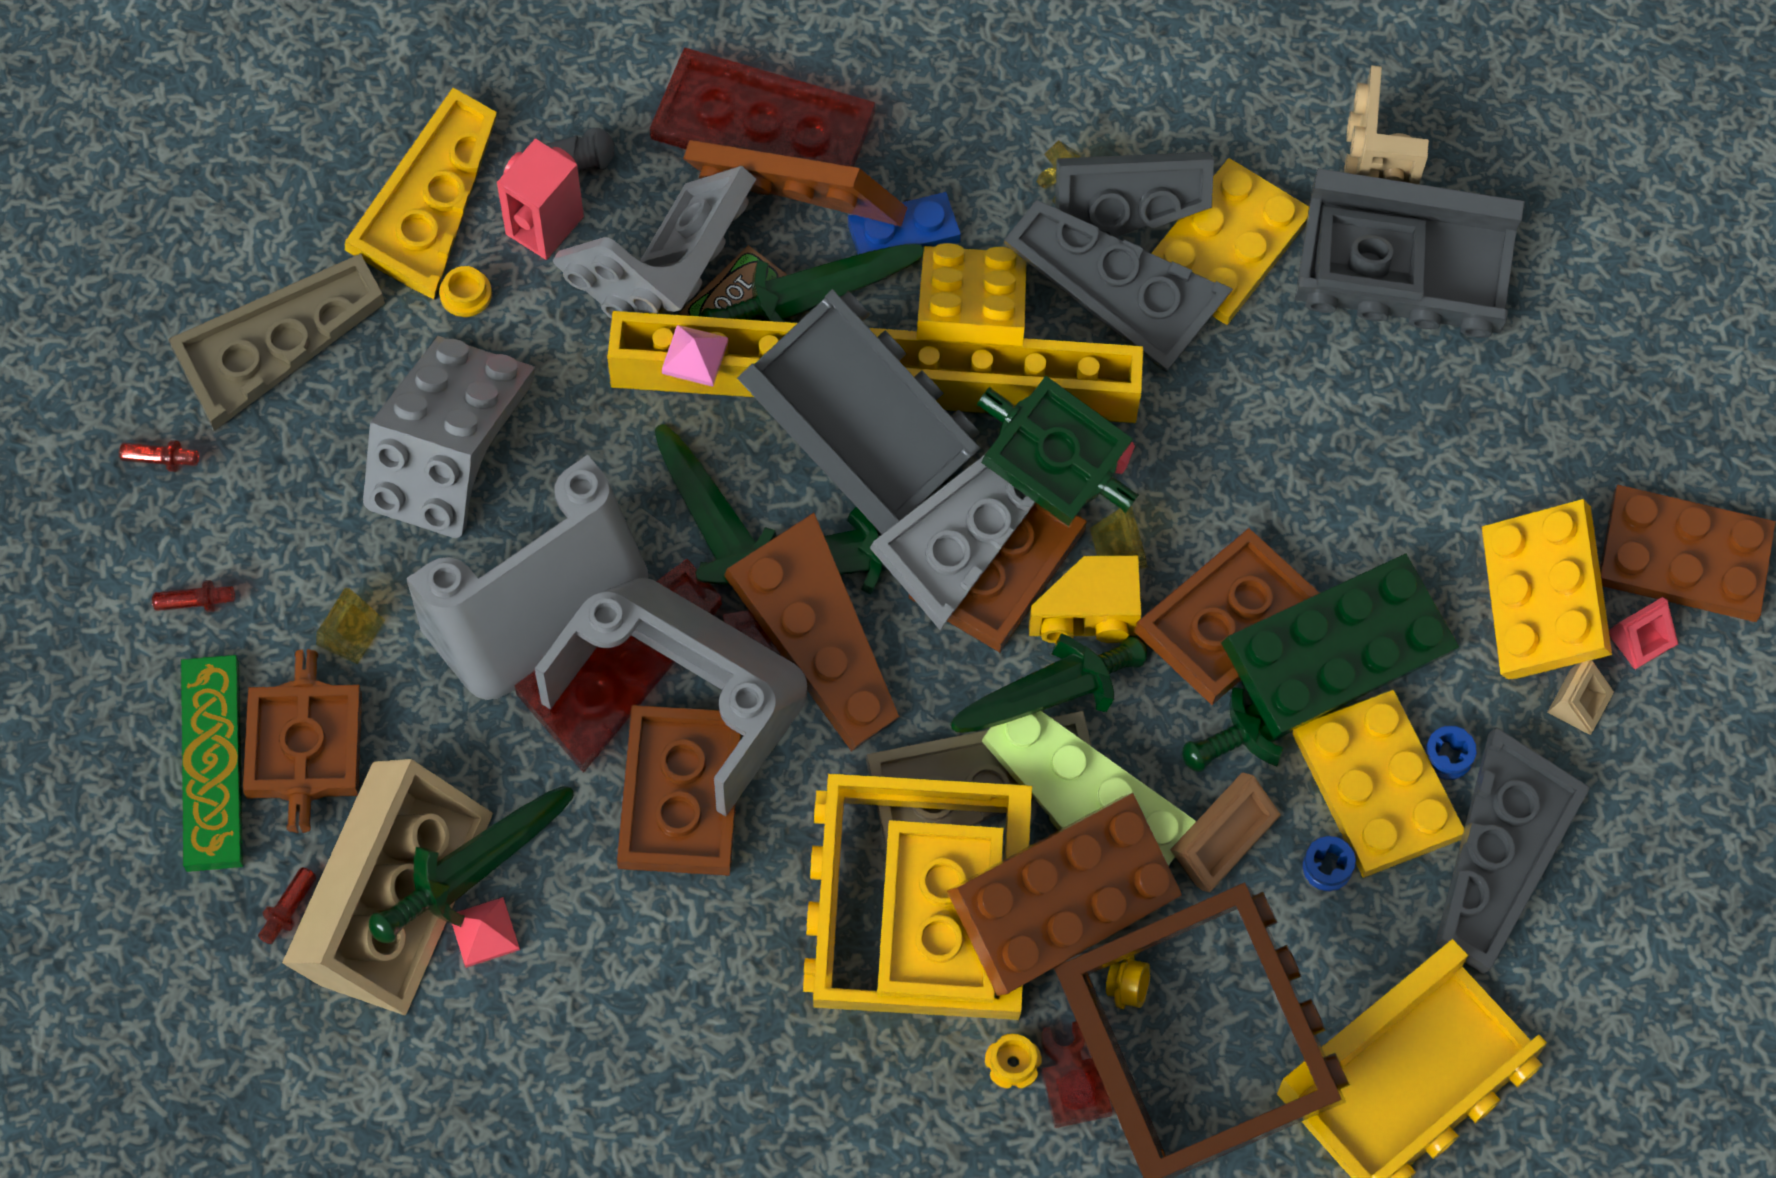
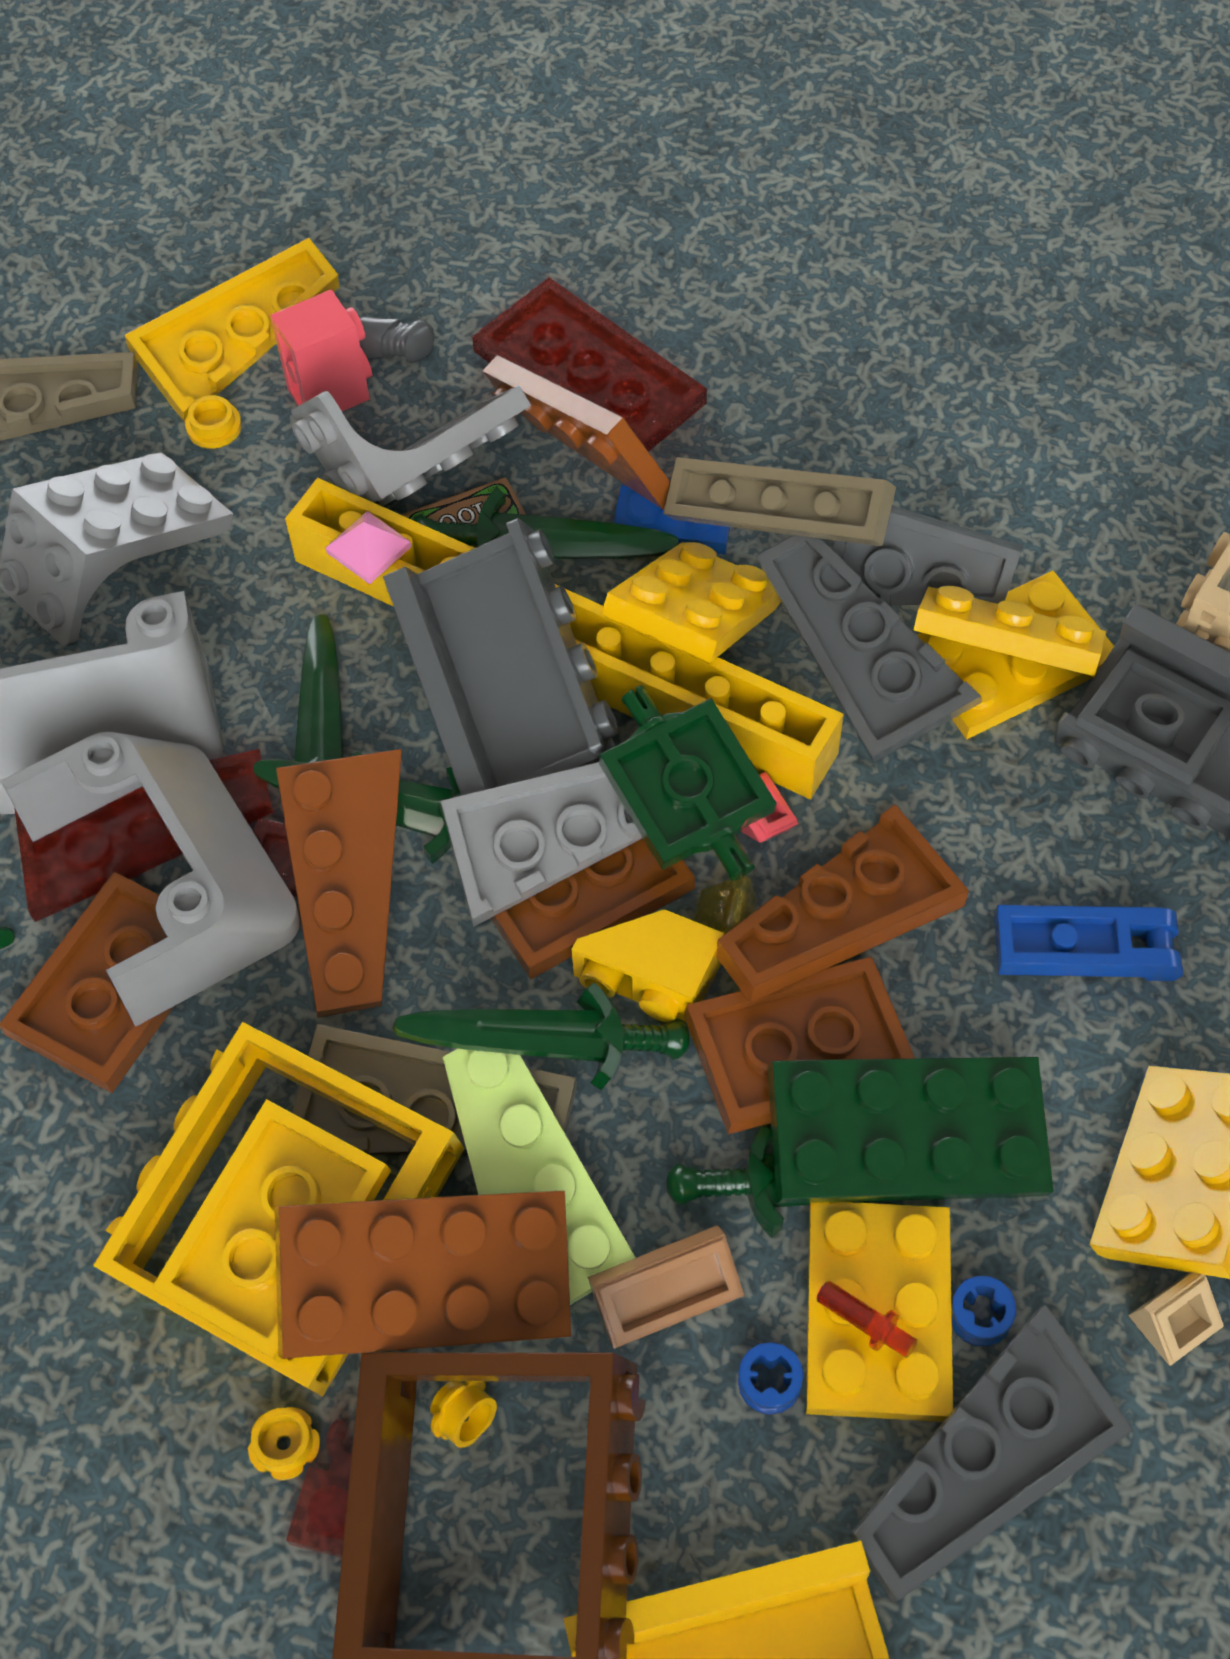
camera: 30 degrees right, 5 degrees down
(1004, 187) = (780, 500): none -> dark tan plate
(1210, 496) = (854, 902): none -> dark orange wing
(1228, 224) = (1010, 629): none -> yellow plate
(1380, 791) = (879, 1327): none -> clear red piece
(1394, 451) = (1087, 941): none -> blue plate

